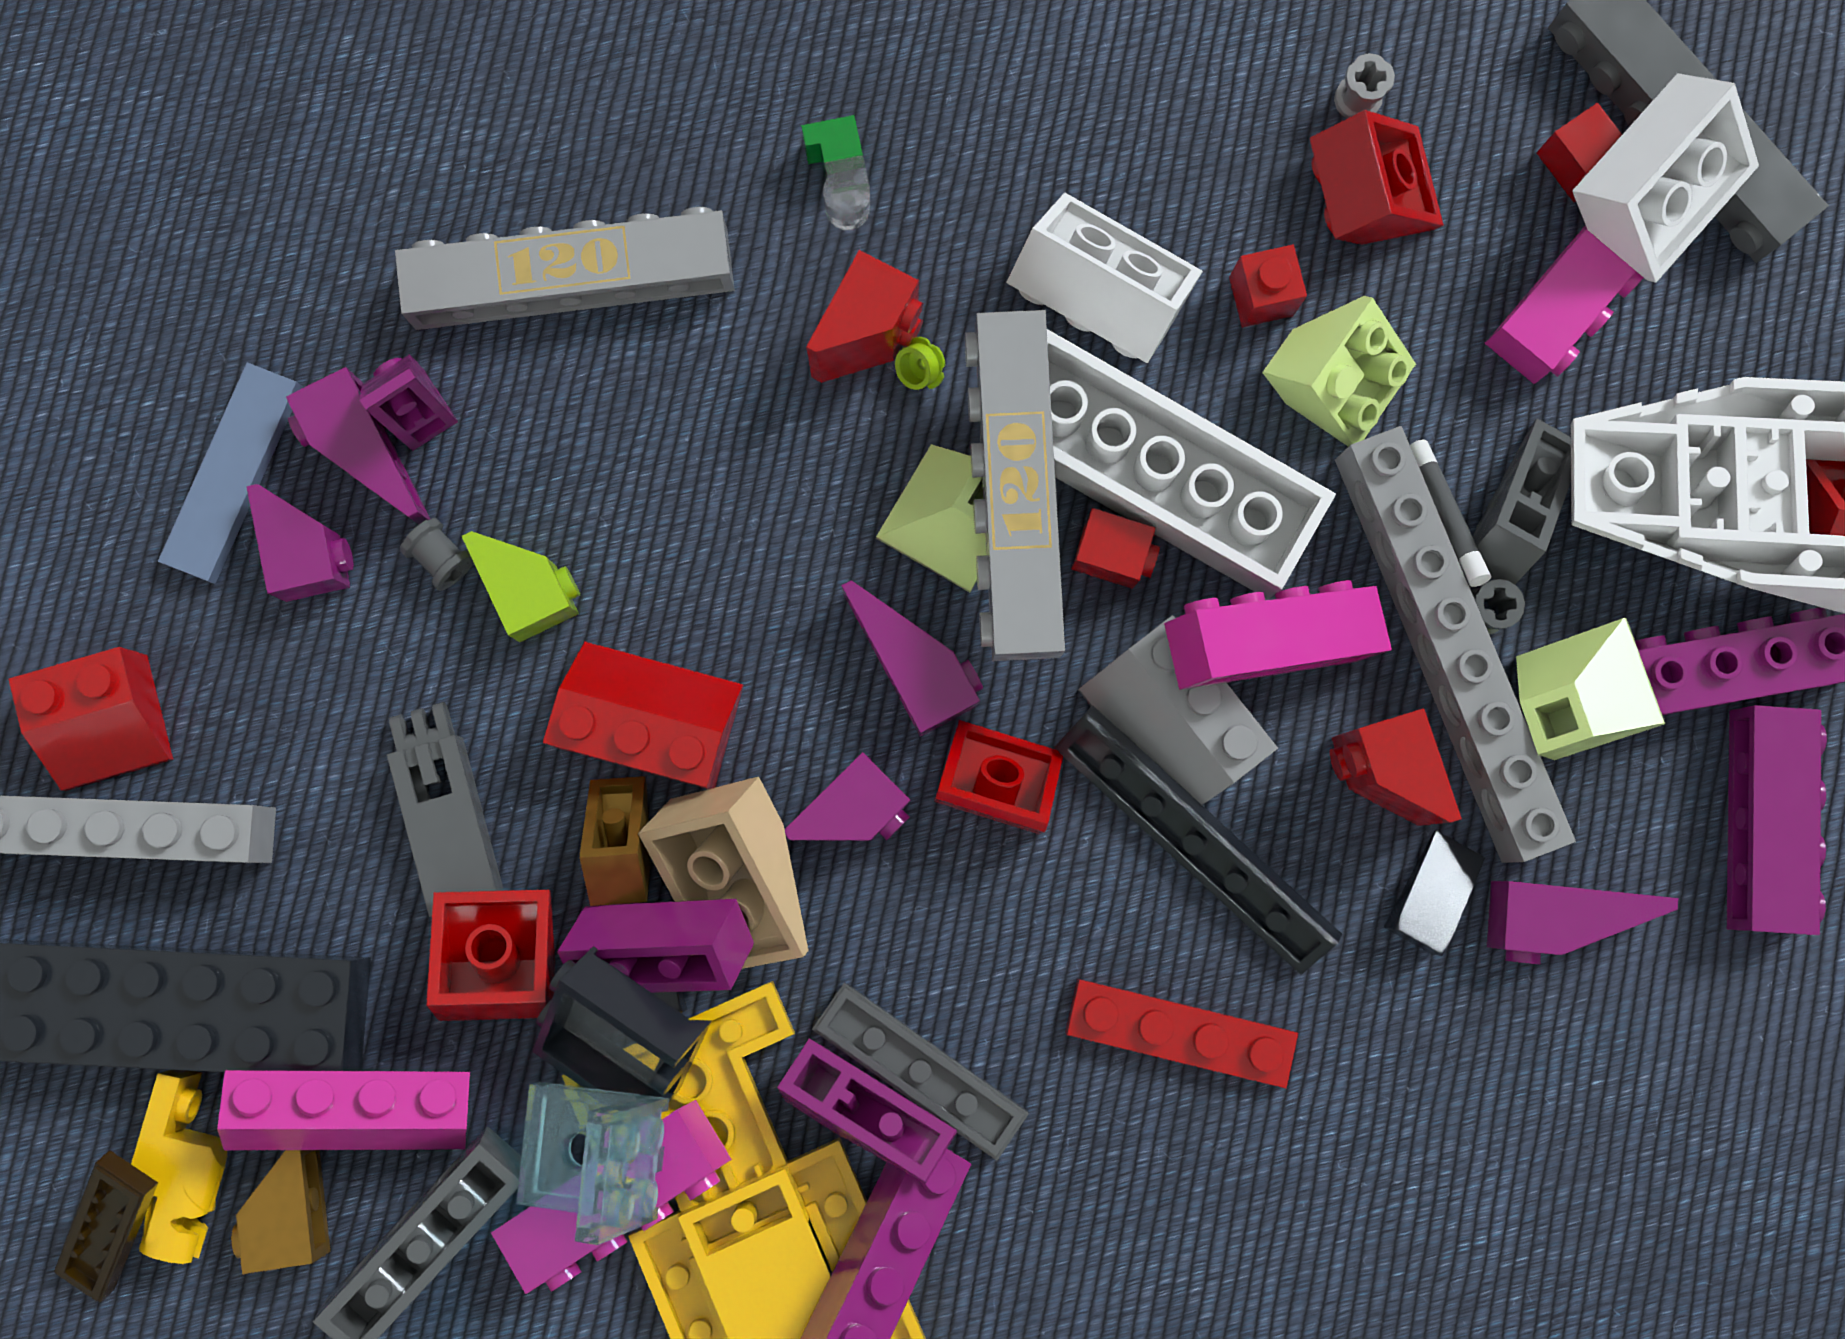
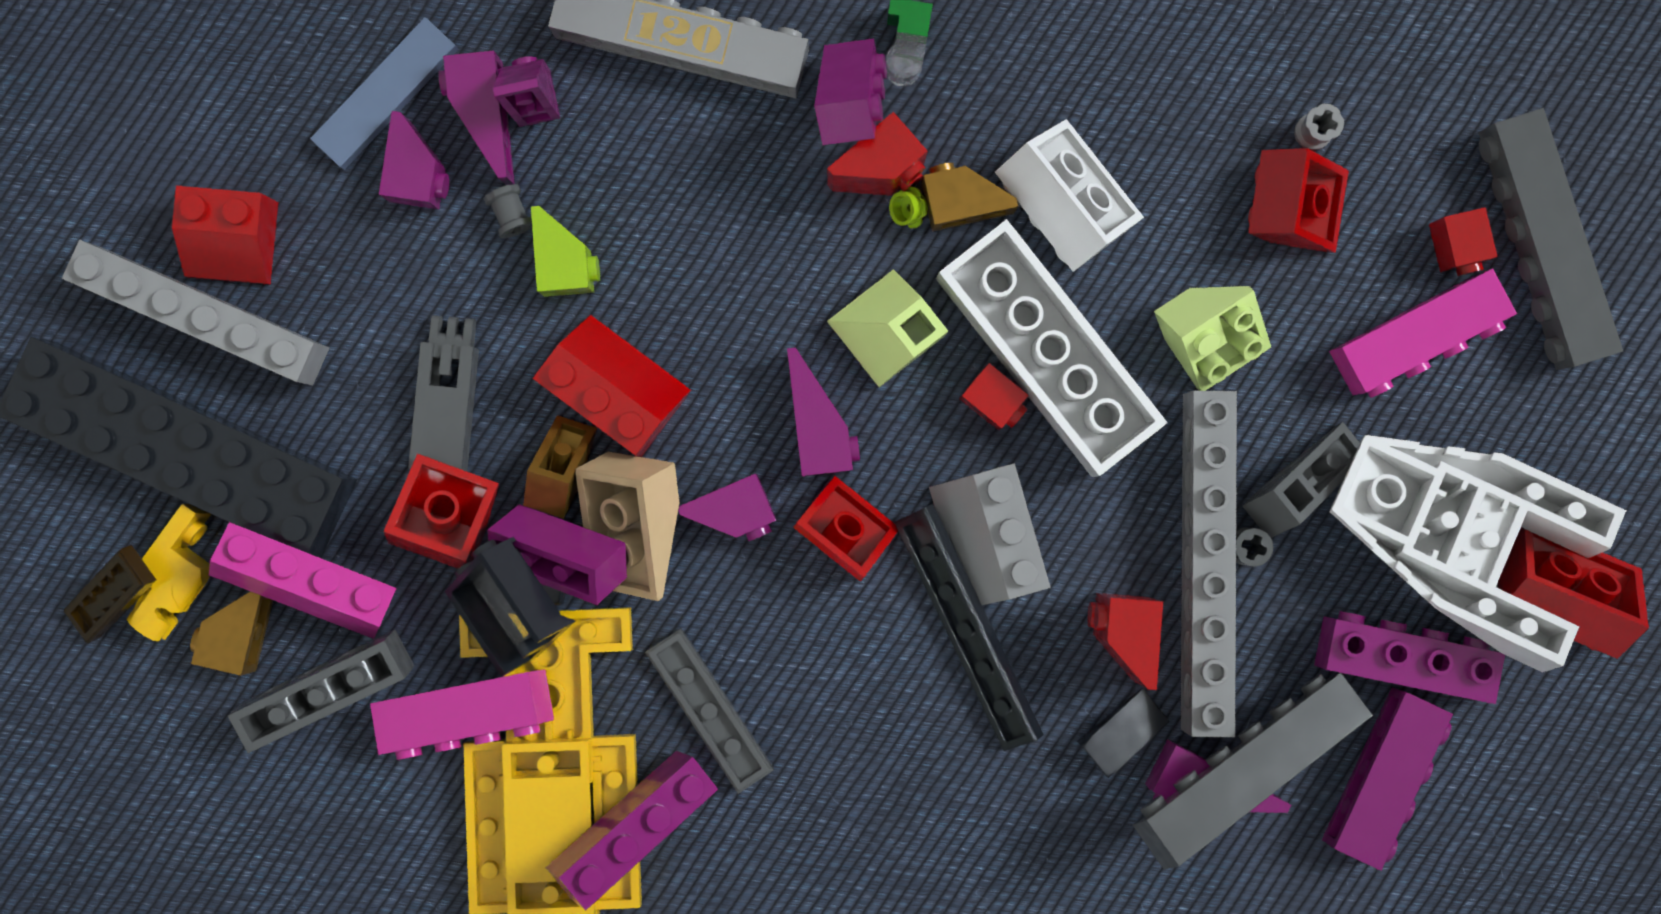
camera: 30 degrees right, 5 degrees up
(620, 1158) = (477, 690): clear light blue bracket -> none
(798, 249) = (850, 91): none -> magenta brick
(865, 1111) = (658, 724): magenta slope -> none
(955, 314) = (963, 197): none -> pearl gold slope
(1018, 486) = (939, 327): light grey brick -> none
(1181, 1033) = (903, 757): red plate -> none
(1267, 285) = (1185, 248): red brick -> none
(1276, 635) = (1082, 507): dark pink brick -> none
(1451, 516) = (1246, 467): dark grey bar -> none
(1586, 691) = (1288, 633): yellowish green slope -> none
(1613, 876) = (1250, 771): none -> dark grey brick
(1668, 174) = (1511, 283): white slope -> none

